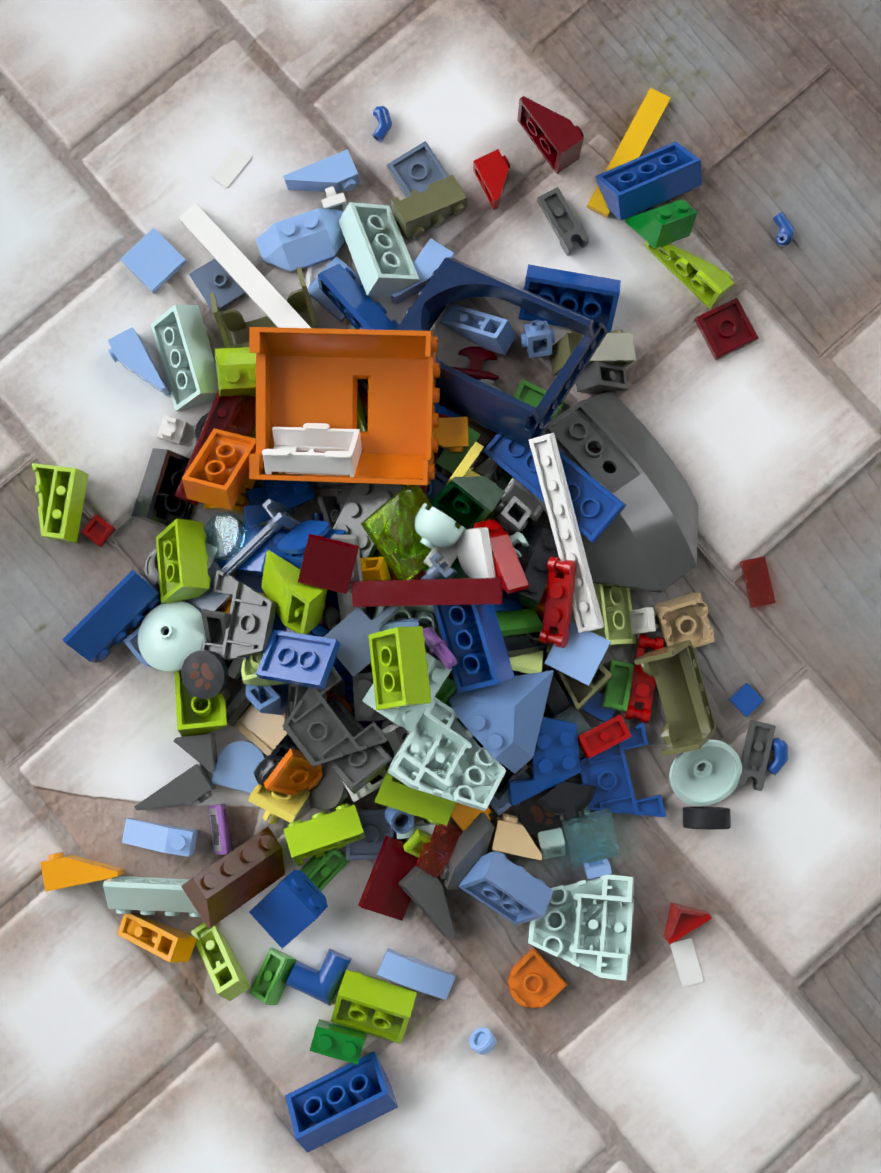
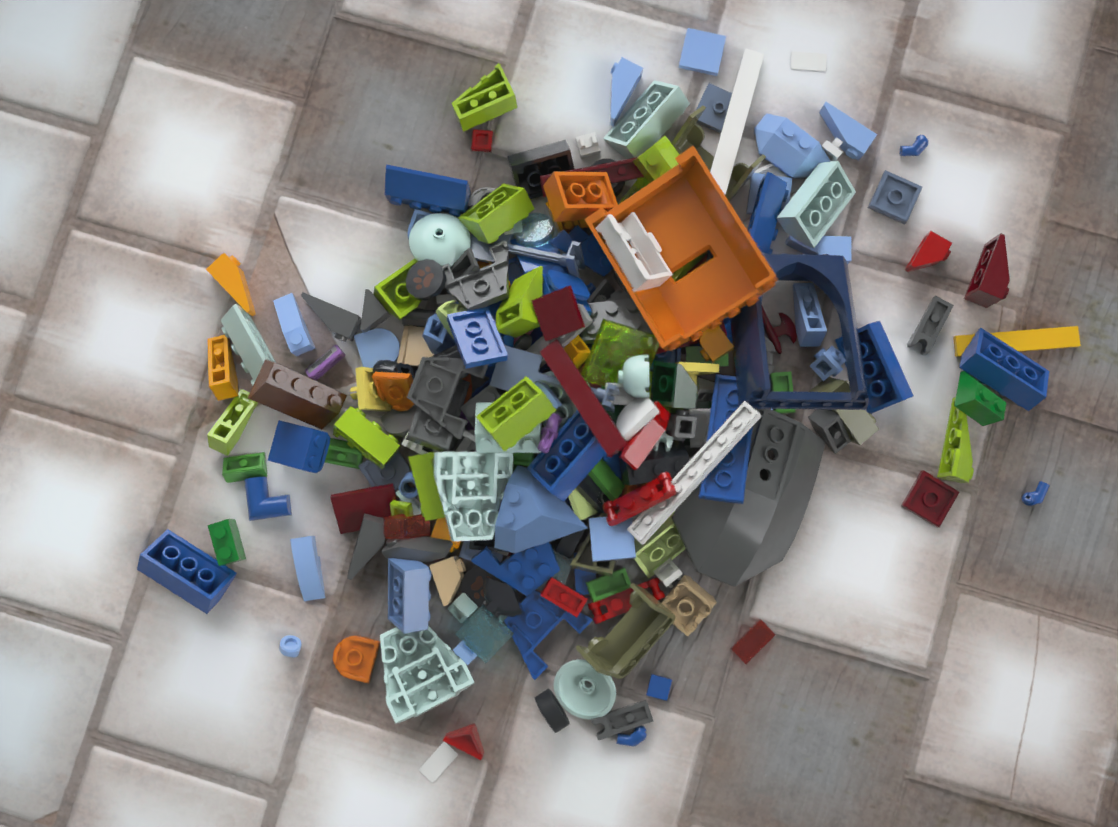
camera: 55 degrees right, 0 degrees up
(244, 417) = (627, 187): clear red tile -> none
(373, 1006) = (267, 551): lime slope -> none
(429, 207) = (874, 221): olive wedge -> none

